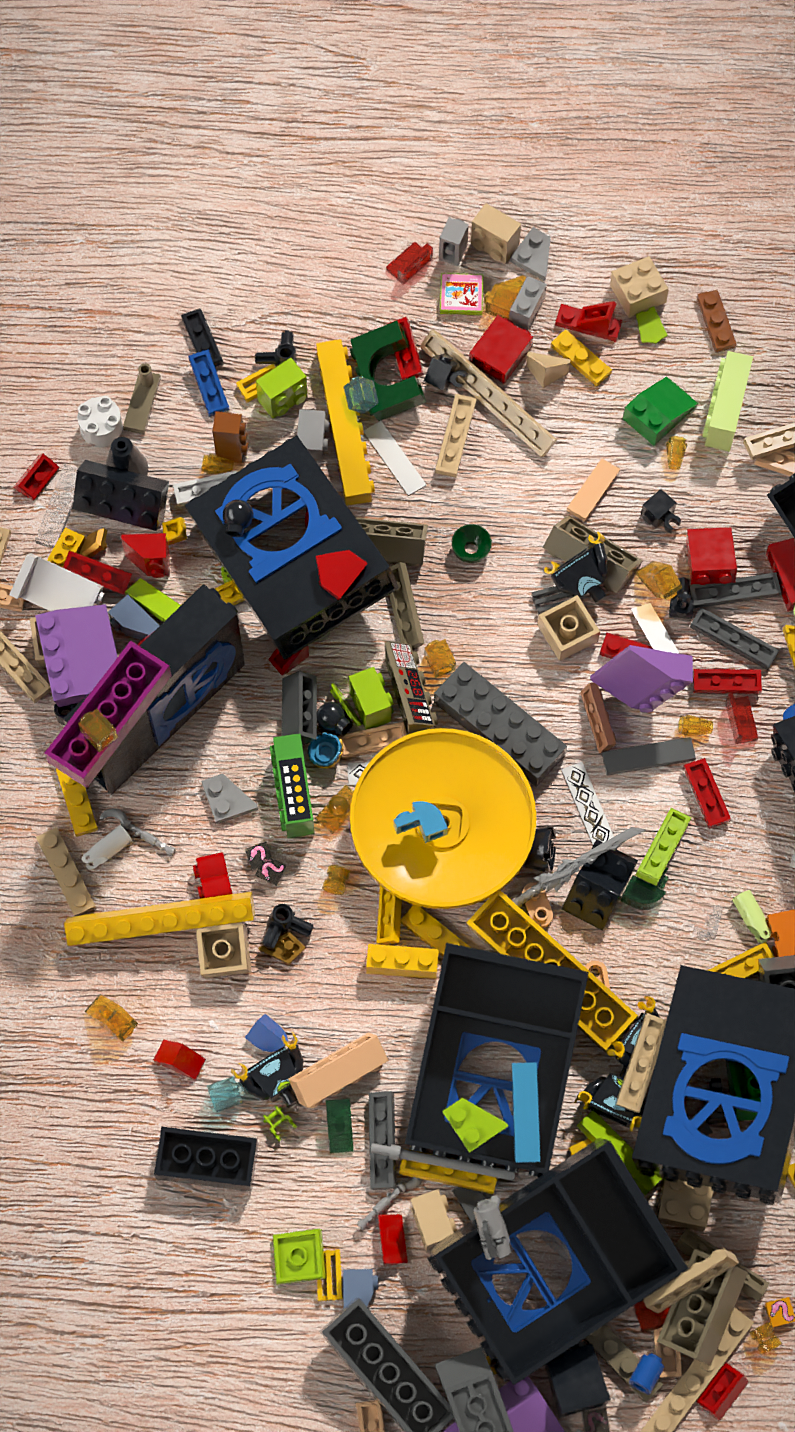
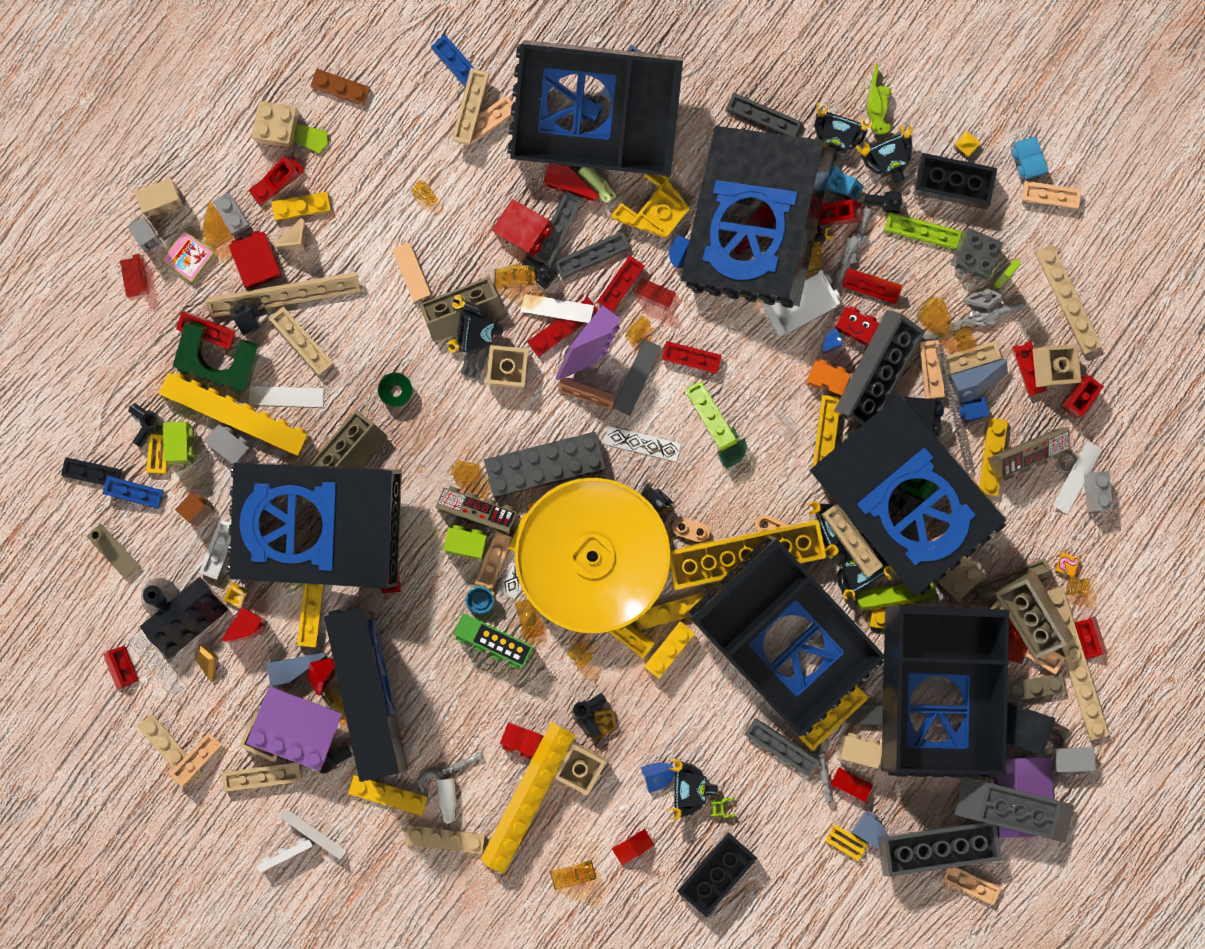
camera: 55 degrees left, 15 degrees up
(54, 586) = (227, 710): white panel -> none
(68, 541) = (198, 685): yellow piece -> none
(97, 730) = (395, 768): clear yellow brick -> none
(98, 572) = (232, 673): red plate -> none
(99, 421) = (110, 593): white brick -> none
(122, 699) = (382, 749): magenta brick -> none
(152, 599) = (292, 643): lime tile -> none
(216, 465) = (204, 530): clear yellow cone -> none
(226, 799) = (467, 692): light grey wing -> none
(226, 1094) = (679, 831): clear light blue brick -> none
(237, 517) = (272, 550): black piece -> none
(256, 854) = (525, 697): clear smoke tile -> none
(270, 870) = (542, 696): clear smoke tile -> none
(299, 1256) = (822, 854): lime tile -> none
(300, 706) = (437, 598): dark grey brick -> none
(333, 719) = (460, 579): black piece -> none
(338, 571) = (370, 509): red slope -> none
(338, 1070) = (717, 745): light nougat brick -> none
(339, 1126) = (753, 769): clear green slope -> none
(344, 703) = (455, 562): lime piece -> none
(360, 394) = (225, 390): clear light blue brick -> none
(395, 1152) = (799, 745): light grey bar -> none
(405, 608) = (411, 471): dark tan plate -> none
(426, 817) = (591, 568): dark azure brick -> none
(473, 1123) = (820, 683): lime wing -> none
(492, 1228) = (906, 723): light grey piece -> none
(525, 1112) = (837, 643): dark azure tile -> none
(533, 253) = (192, 180): light grey wing -> none
(569, 867) = (684, 493): light grey sword -> none
(599, 887) = (708, 479): black bracket -> none
(647, 1373) = (1050, 680): blue brick -> none
(658, 410) = (382, 179): green slope -> none
(659, 510) = (461, 238): black brick -> none
(697, 1276) = (1016, 604): tan plate -> none
(727, 400) = (414, 128): yellowish green brick -> none
(752, 915) = (798, 389): yellowish green piece -> none

